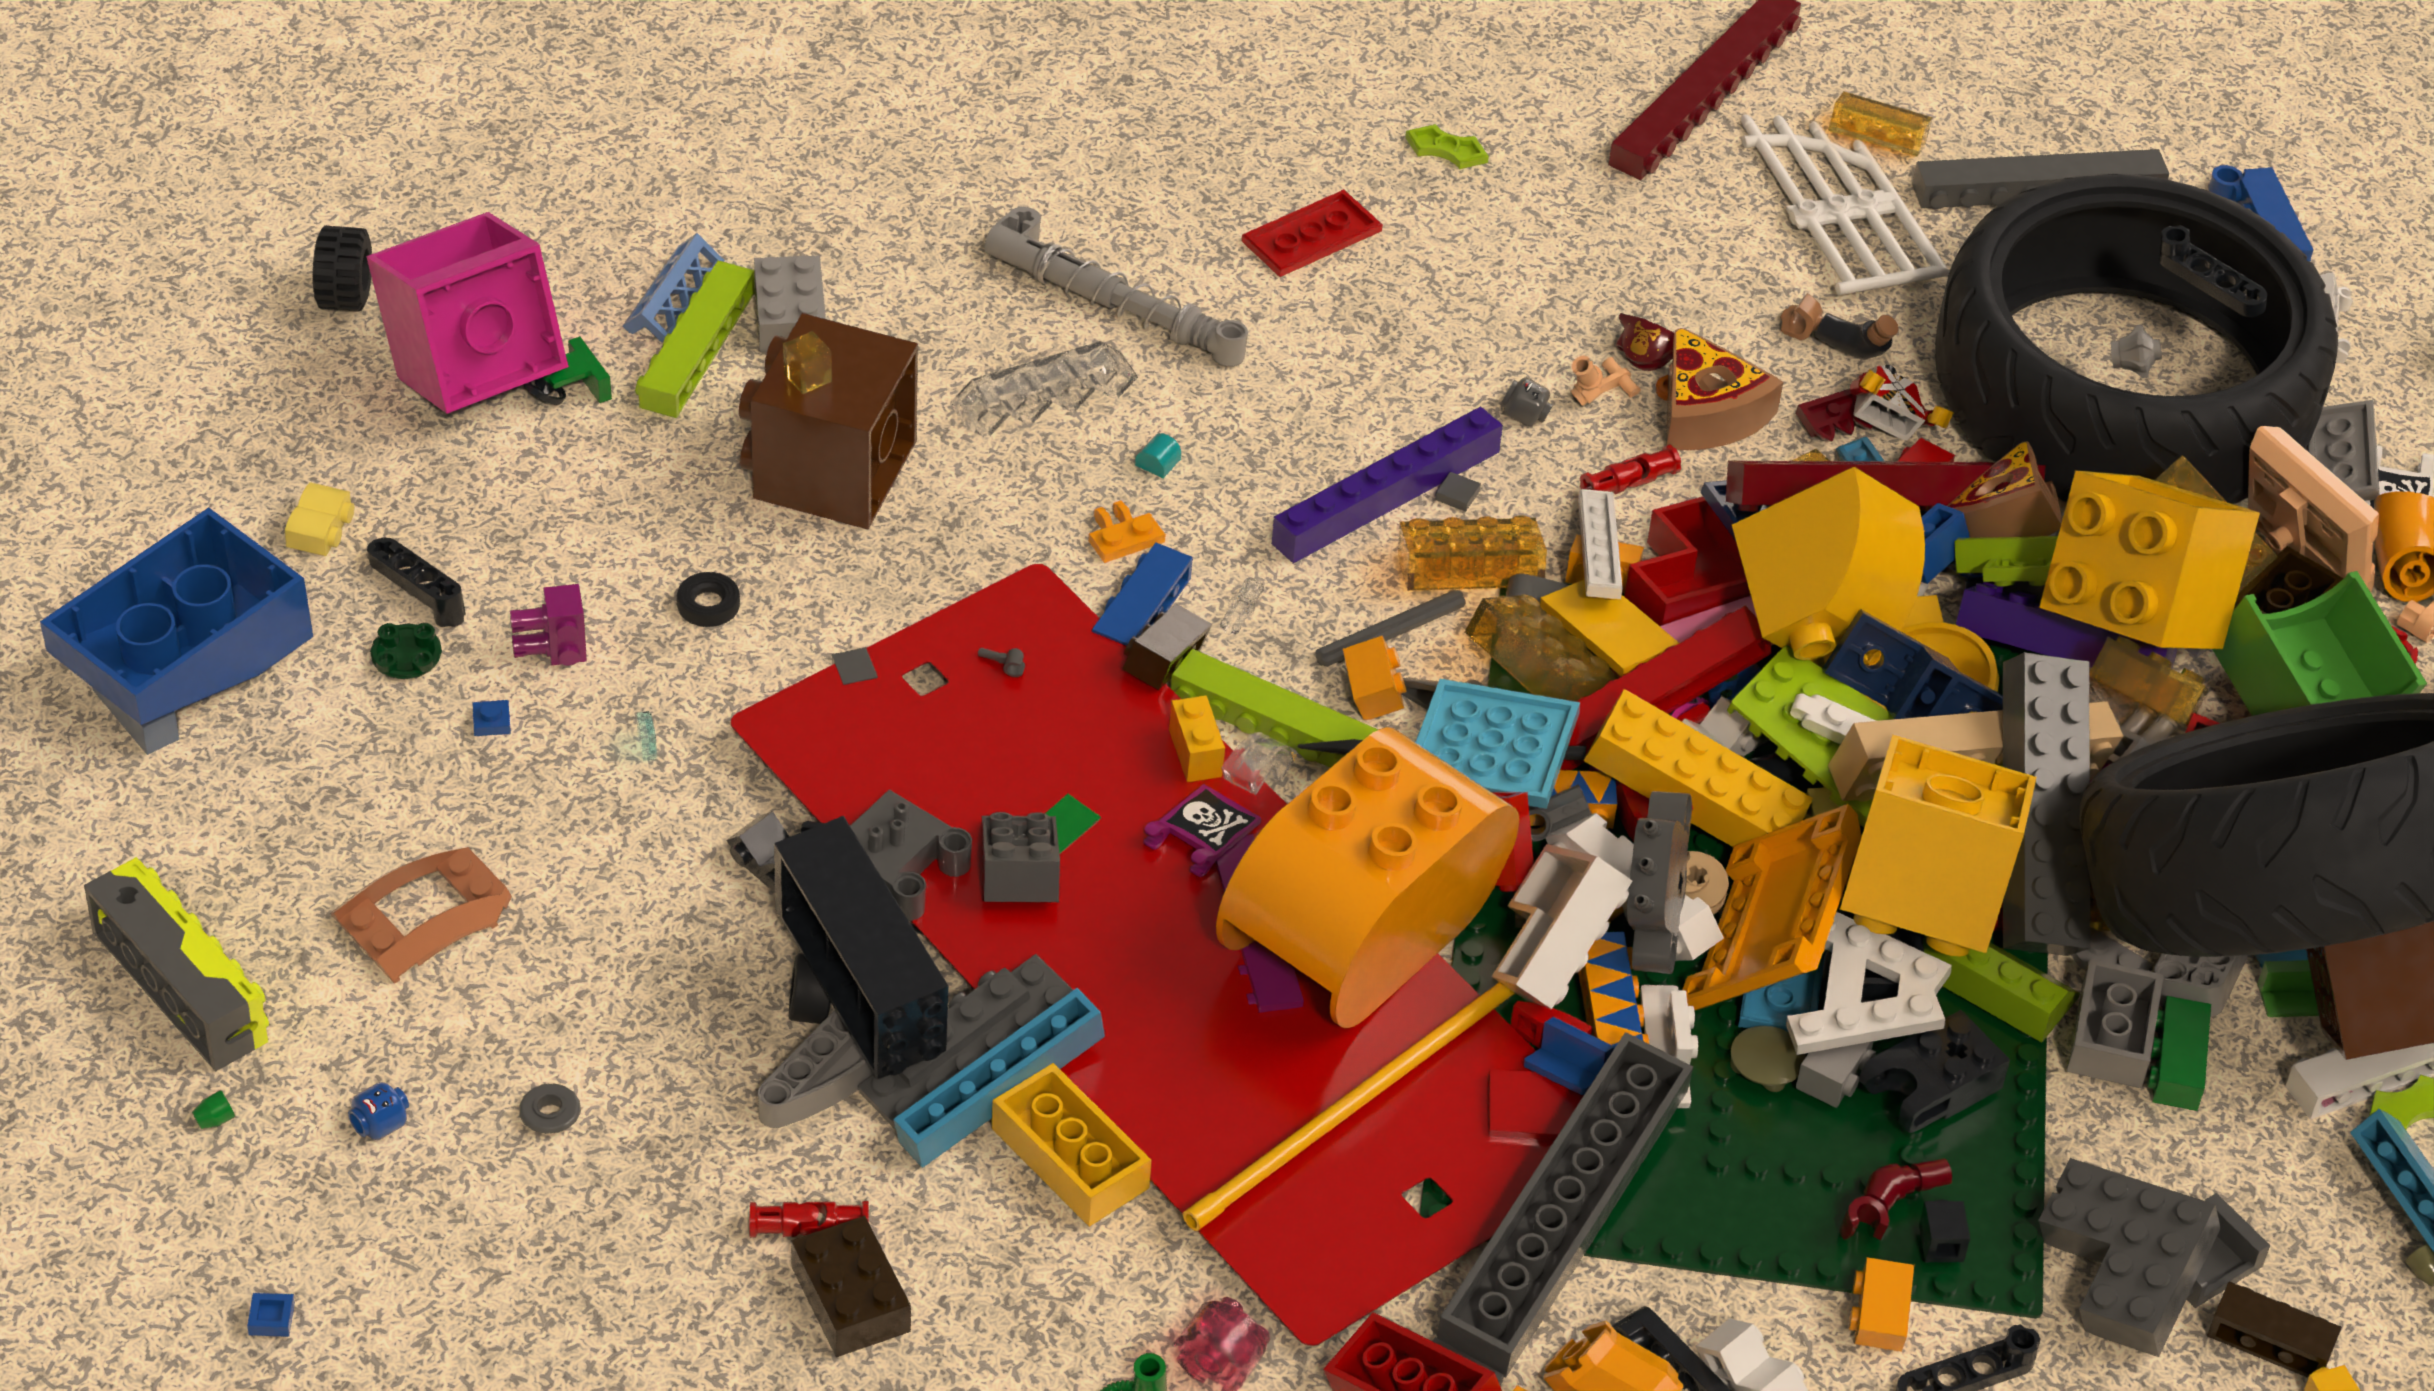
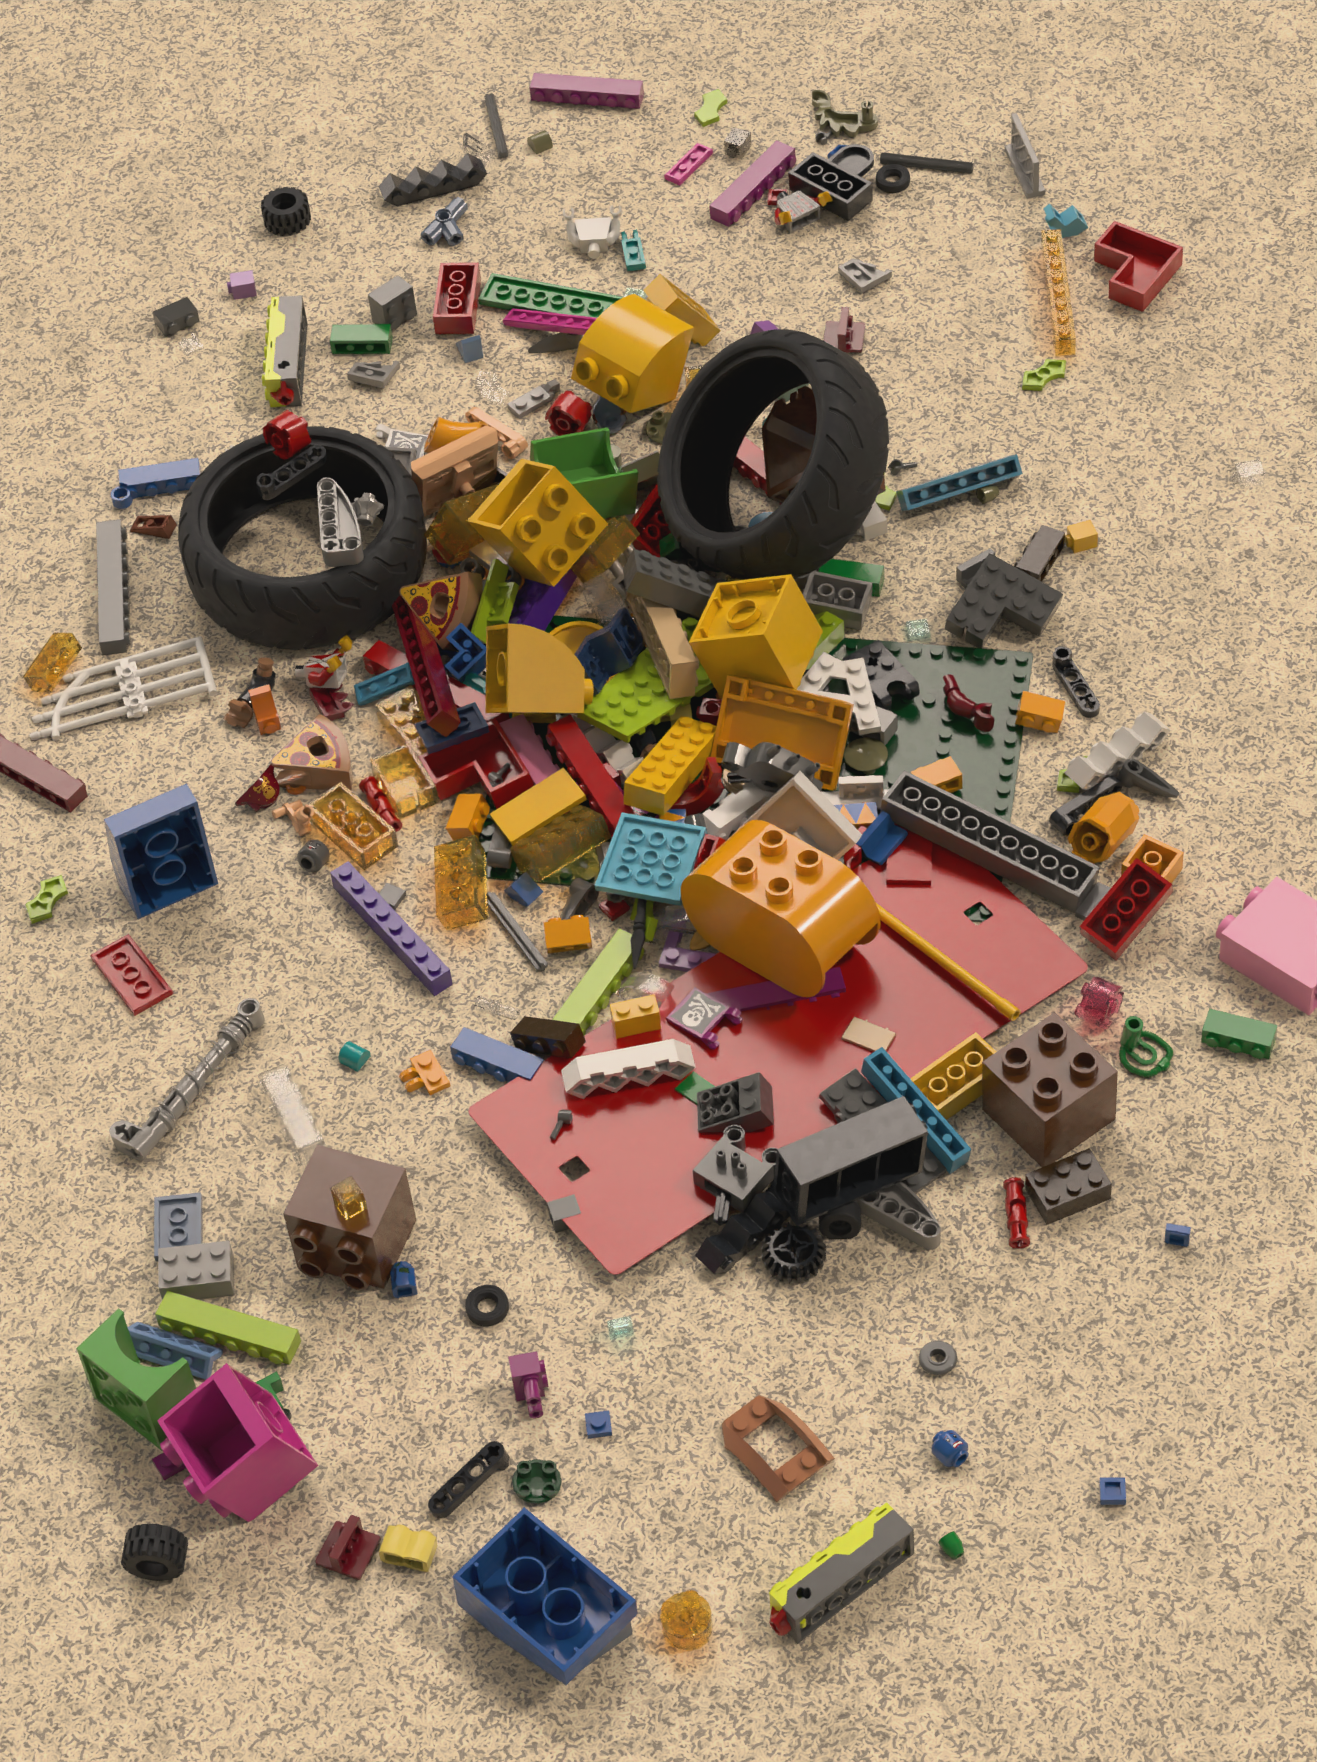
camera: 80 degrees left, 5 degrees up
(141, 798) = (691, 1608): none -> clear yellow brick
(328, 459) = (348, 1548): none -> dark red bracket
(595, 213) = (125, 1386): none -> bright green container
(737, 943) = (781, 1259): none -> black gear
(761, 511) = (403, 1280): none -> blue rock
(872, 289) = (177, 1221): none -> sand blue plate
(1014, 1240) = (1049, 1090): none -> reddish brown piece
(1095, 727) = (635, 1063): none -> white brick
(1164, 1036) = (868, 1035): none -> tan brick
(1454, 633) = (524, 890): none -> blue brick
(1482, 203) = (160, 851): none -> blue slope
(1580, 436) = (353, 826): none -> clear yellow brick
(1600, 544) = (462, 811): white tile -> none
(1645, 485) = (404, 780): none -> clear yellow piece
(1674, 584) = (495, 778): none -> dark grey hand
(1711, 1144) = (942, 774): none -> light orange brick
(1801, 338) = (264, 710): none -> orange arch
(1825, 716) = (641, 688): white hinge -> none
(1944, 1231) = (989, 682): black brick -> none
(2077, 1146) = (918, 629): none -> clear light blue tile
(2085, 323) = (338, 526): none -> light grey beam
(2278, 255) = (287, 434): none -> red brick

